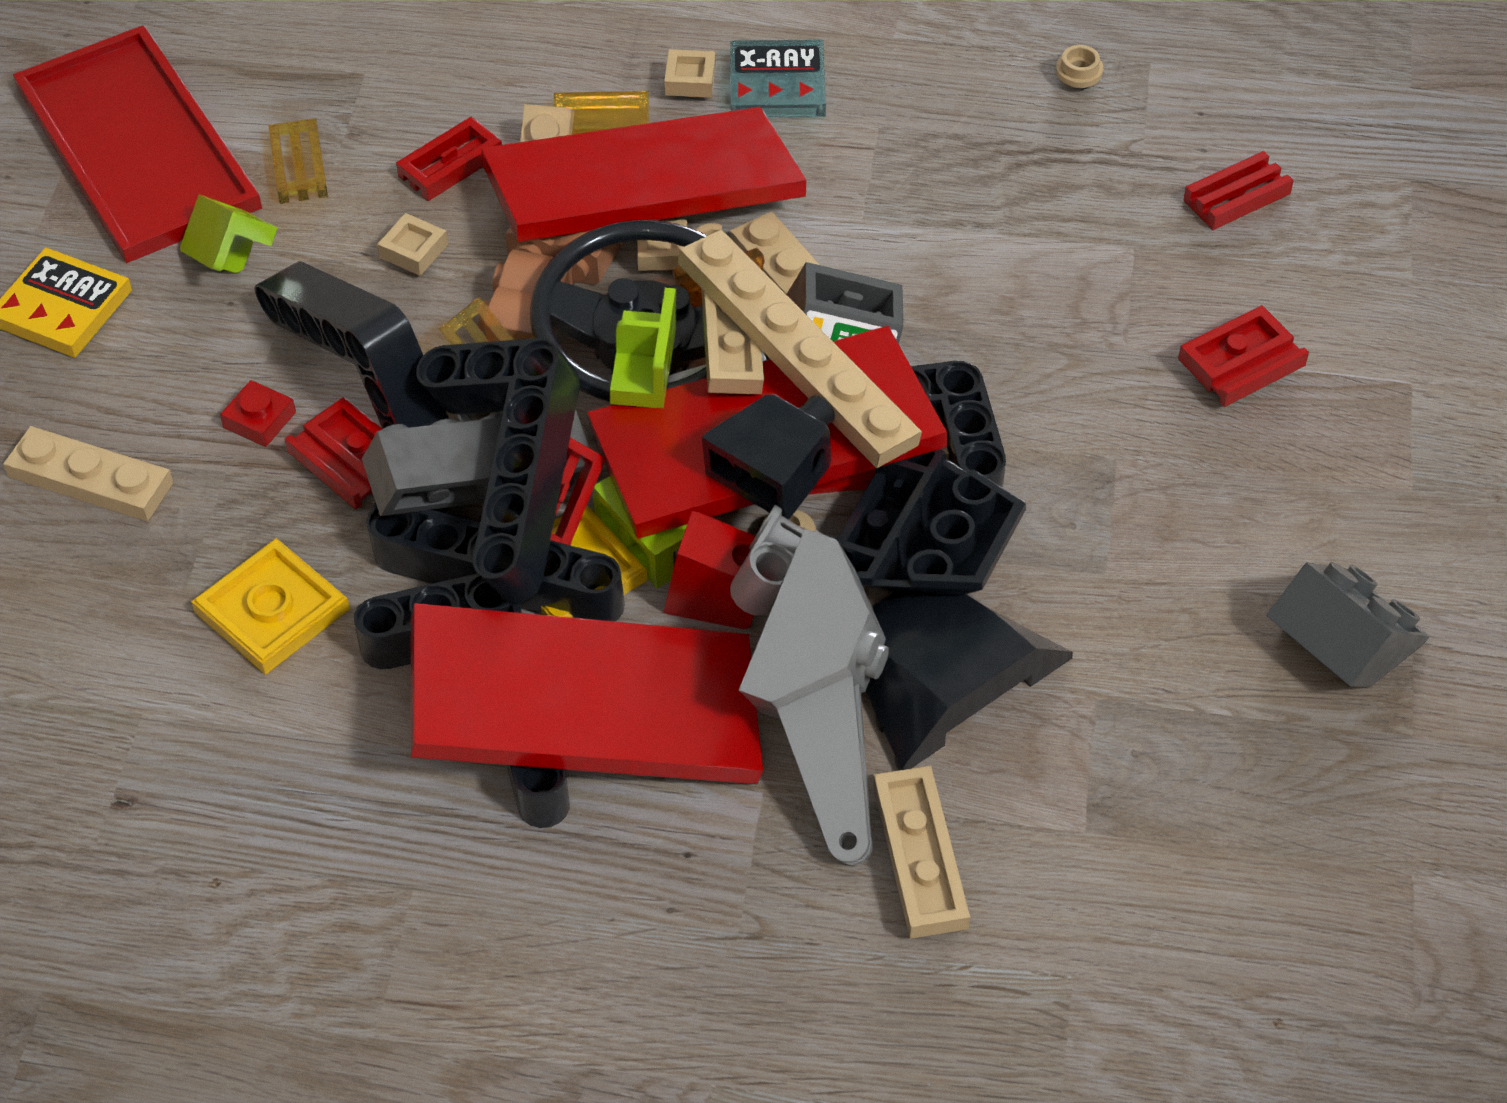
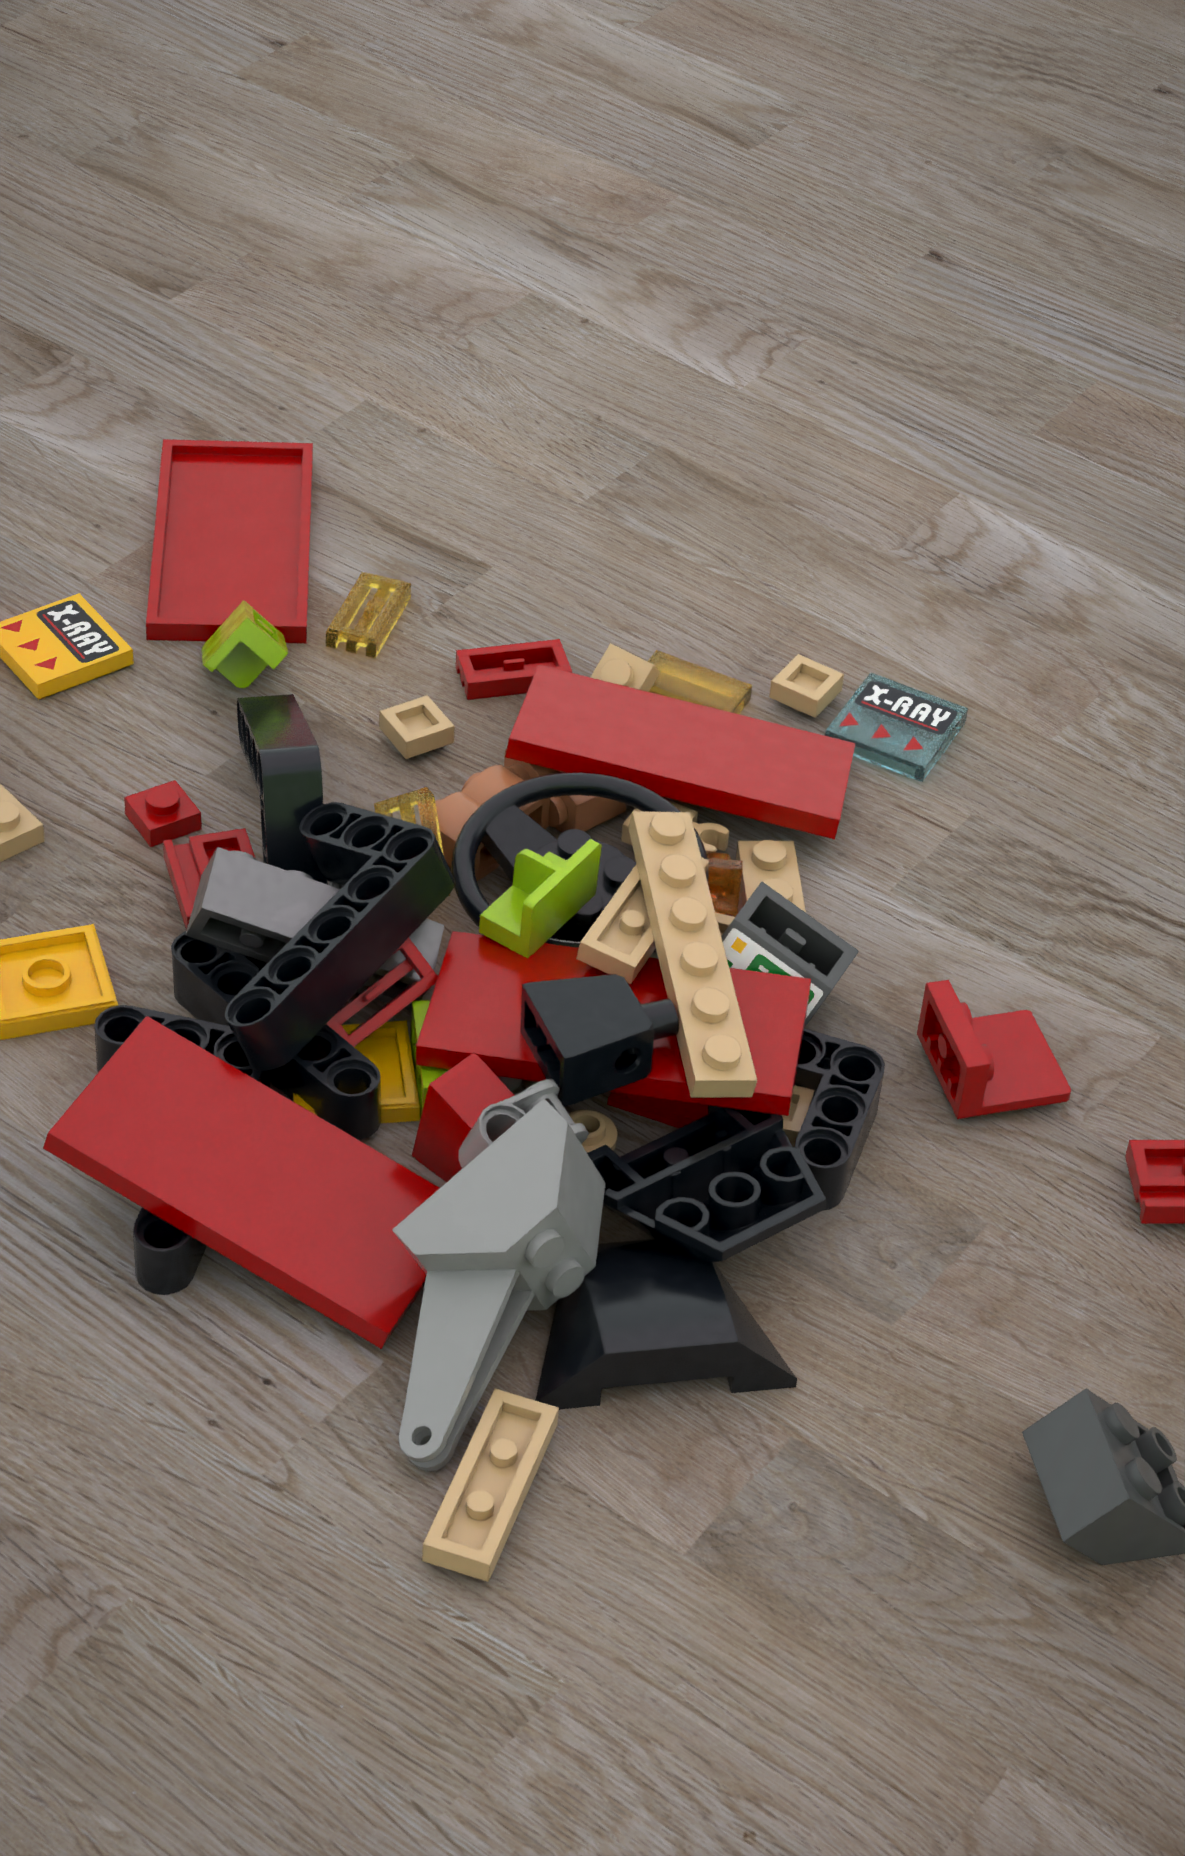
camera: 25 degrees right, 10 degrees down
(1034, 326) = (987, 1060): none -> red bracket

